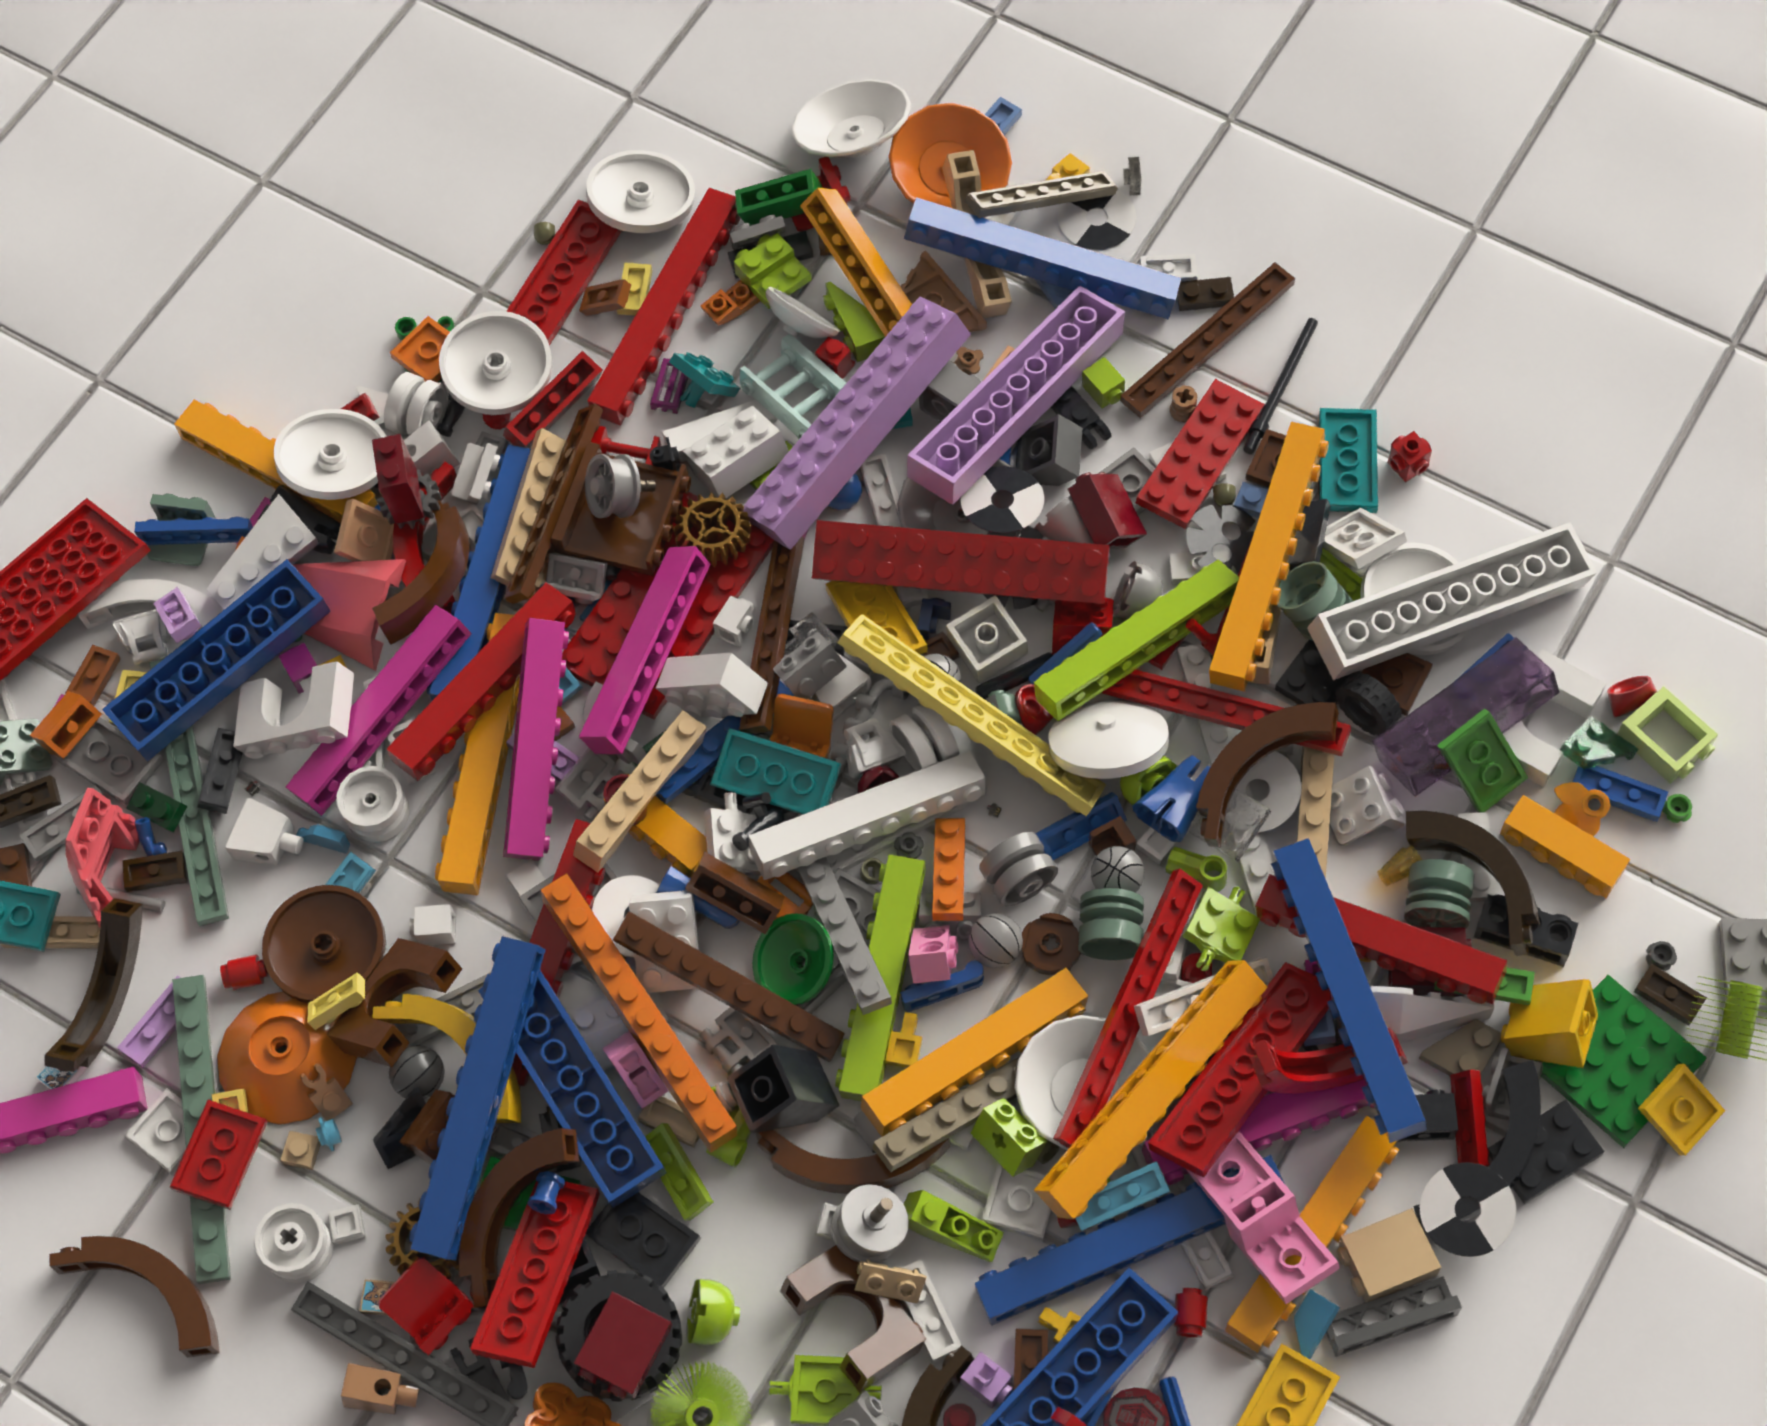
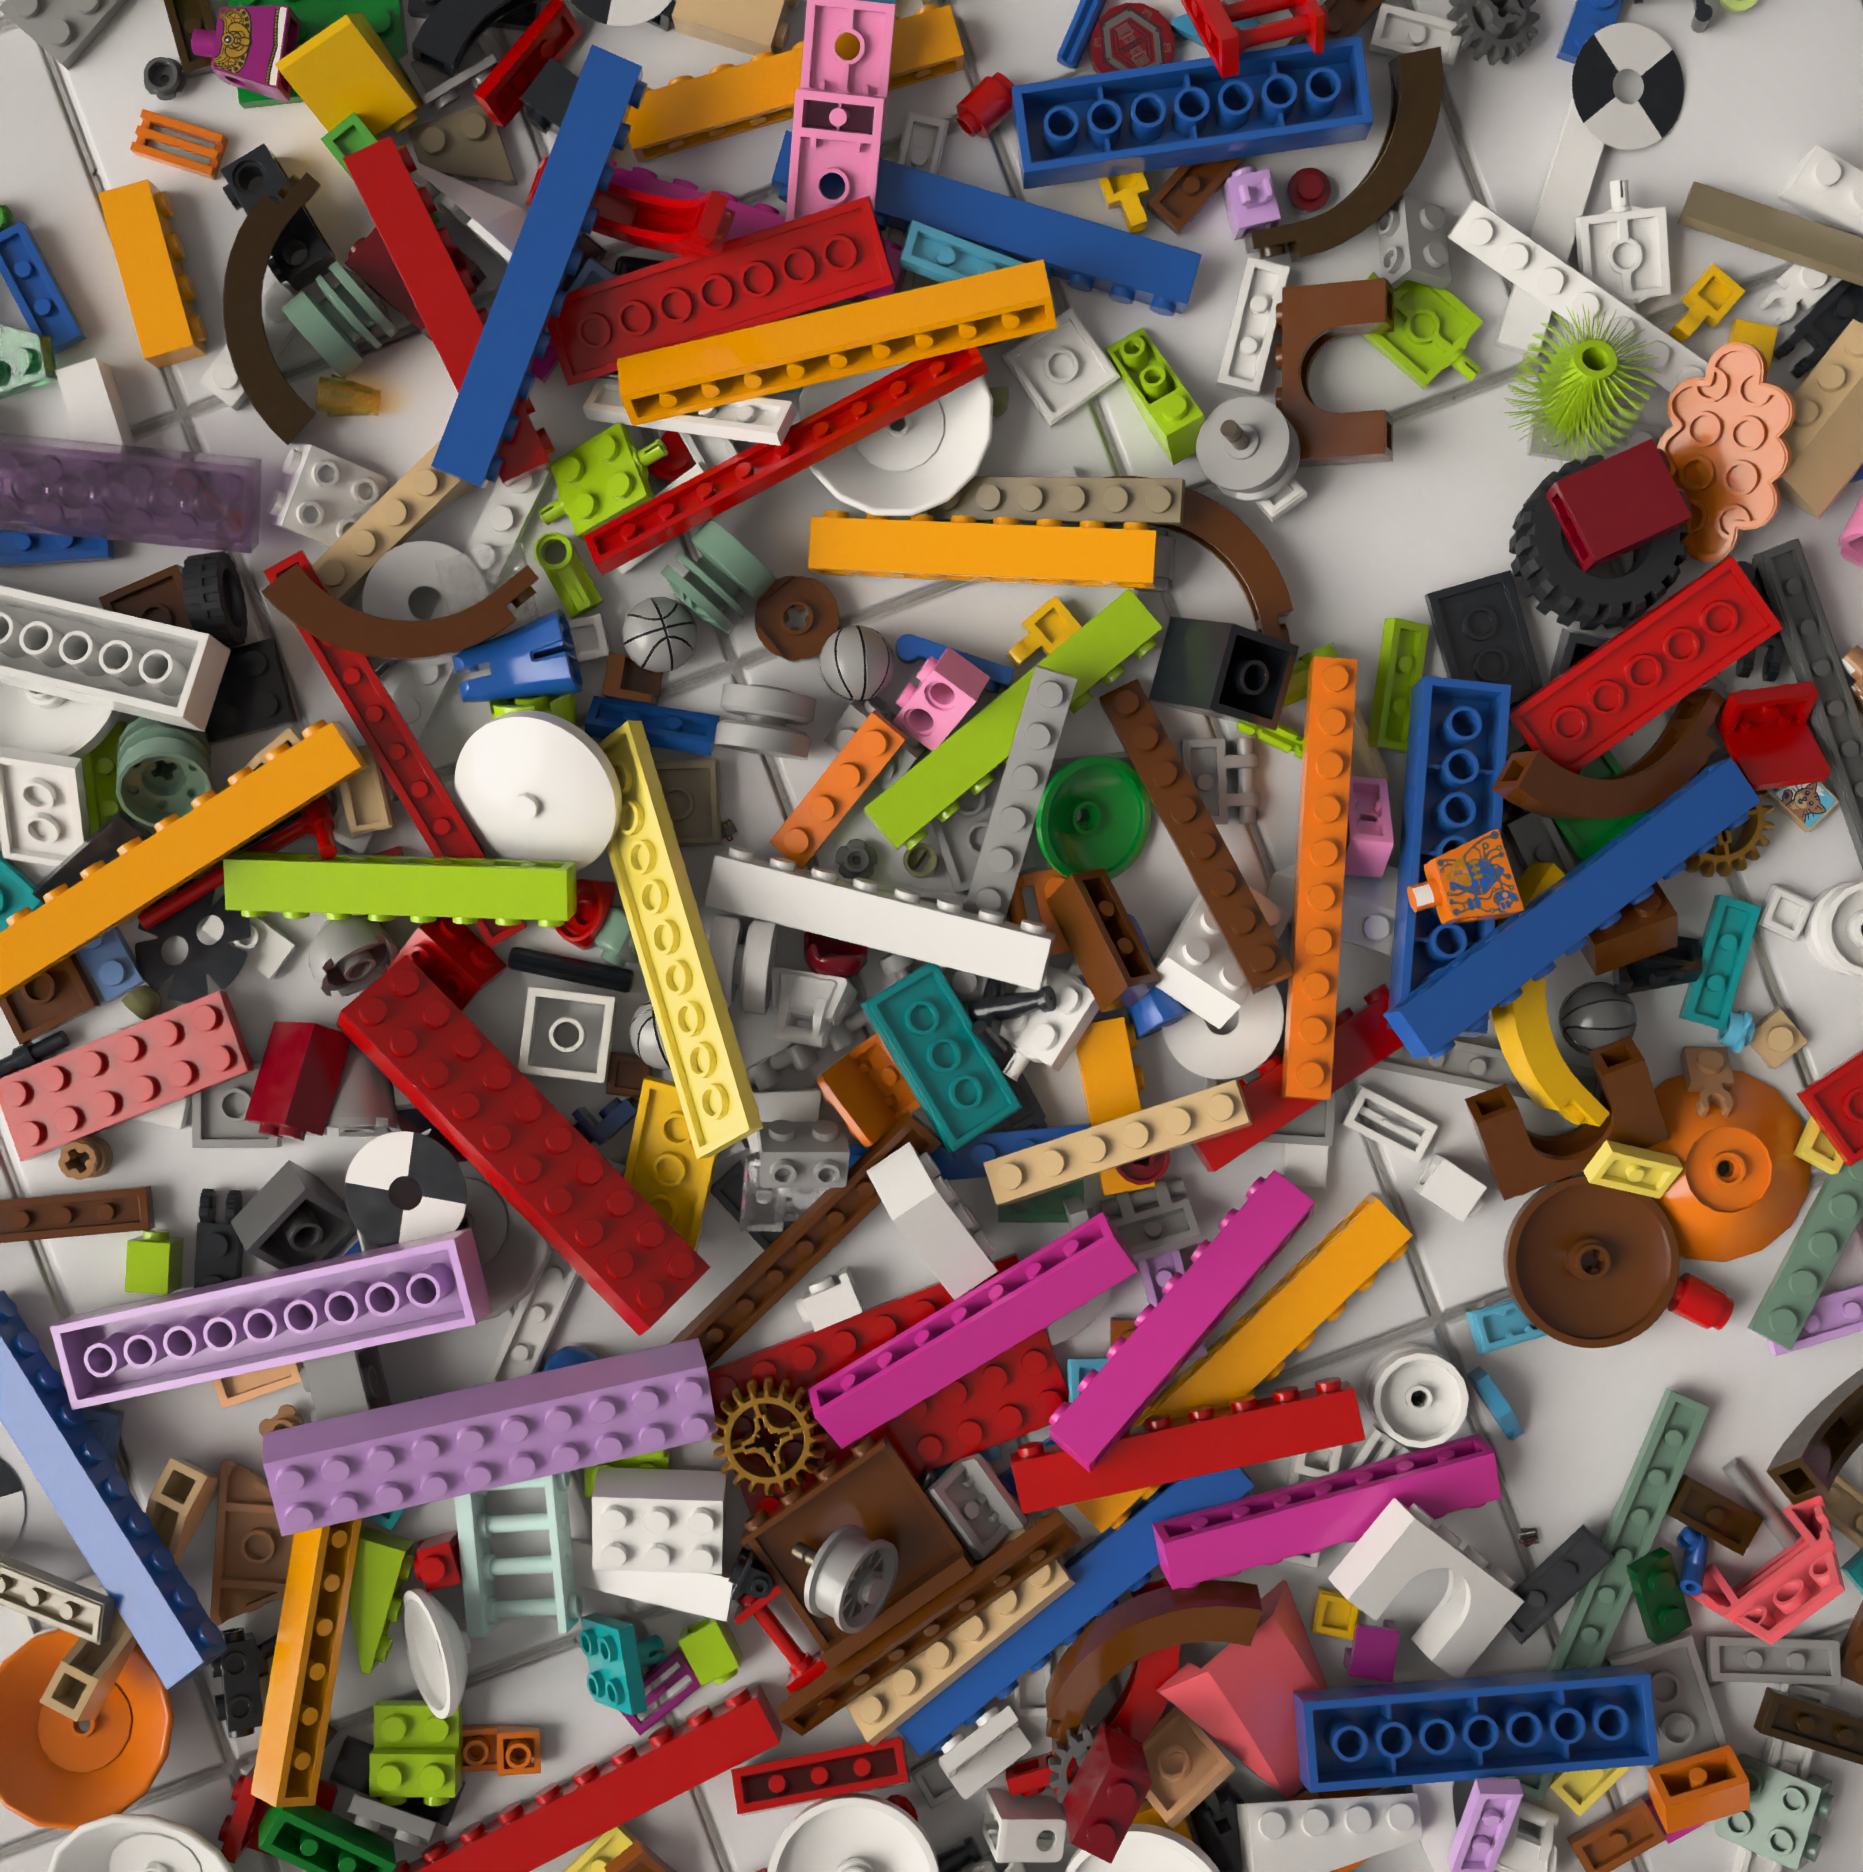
camera: 150 degrees left, 25 degrees up
(262, 835) = (1562, 1461): white torso -> none
(365, 1165) = (1723, 959): none -> teal plate
(488, 926) = (1356, 1107): none -> white tile
(546, 1192) = (1571, 746): blue bush -> none
(550, 1058) = (1469, 883): none -> torso
(658, 417) = (711, 1650): none -> lime brick
(711, 1313) = (1480, 496): lime cylinder -> none
(726, 1096) = (1291, 719): light grey plate -> none
(889, 1282) = (1261, 360): tan hinge -> none
(890, 240) = (240, 1674): none -> black brick
(1008, 1137) = (1024, 431): lime brick -> none
(1027, 804) = (693, 800): none -> dark tan plate
(1077, 643) = (497, 939): blue axle -> none
(1194, 669) = (367, 798): none -> tan tile
(1482, 761) = (153, 424): bright green tile -> none
(1576, 808) = (102, 305): light orange plate -> none
(1624, 999) = (249, 45): none -> magenta torso
(1642, 918) = (146, 133): none -> orange tile

